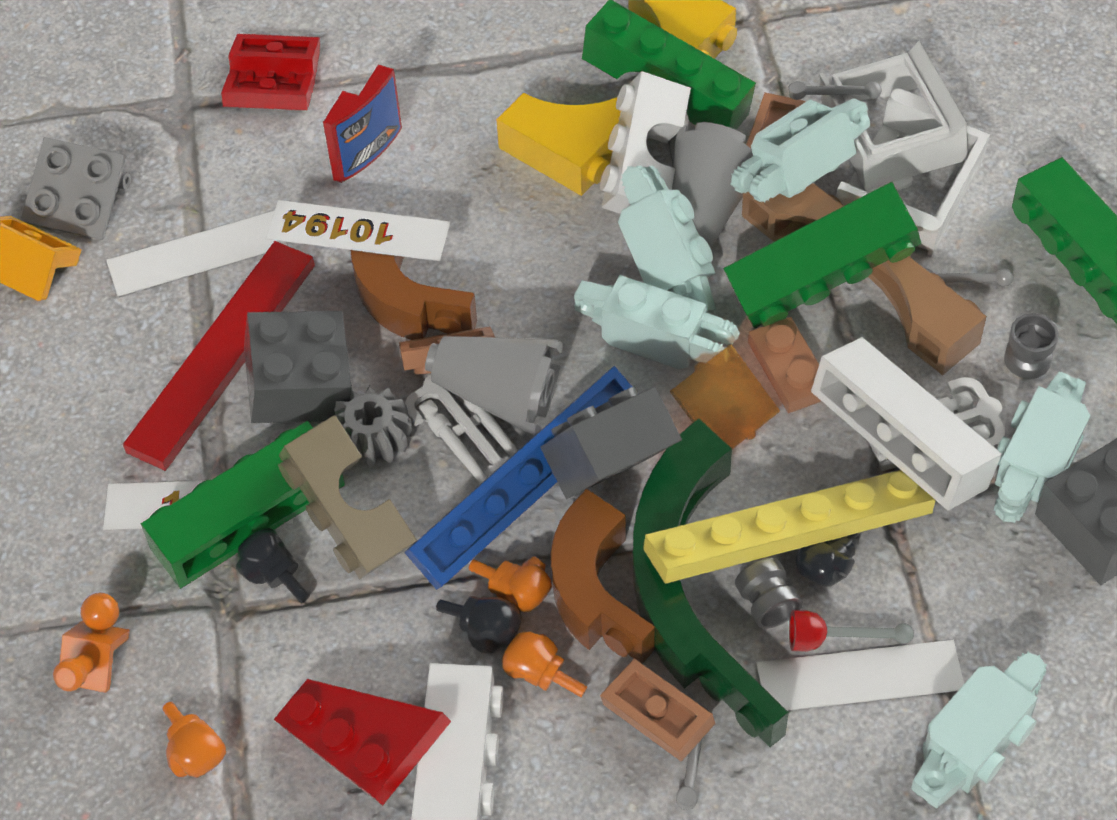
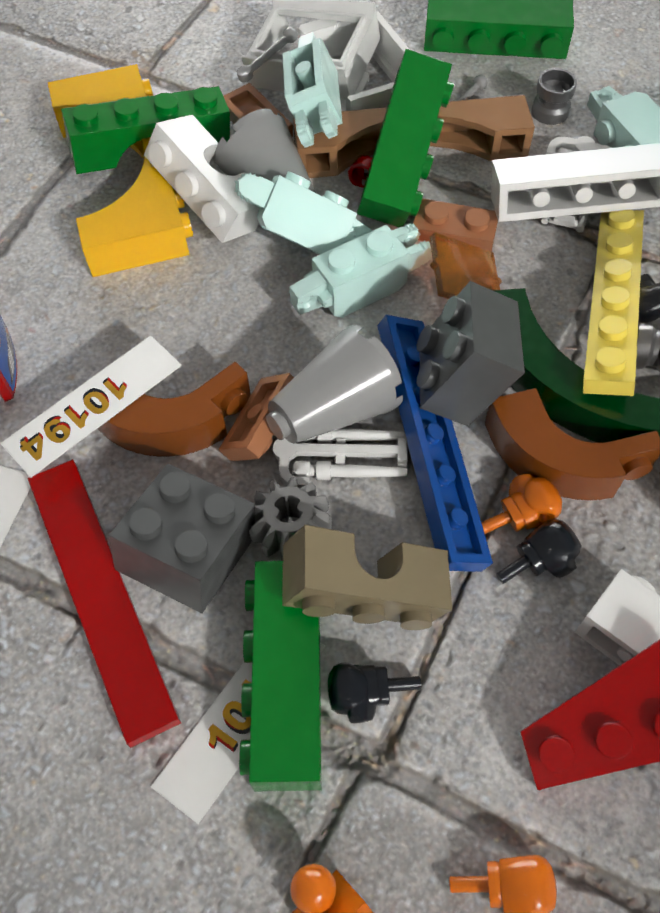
camera: 55 degrees left, 5 degrees up
(535, 660) = (610, 538): orange piece -> none

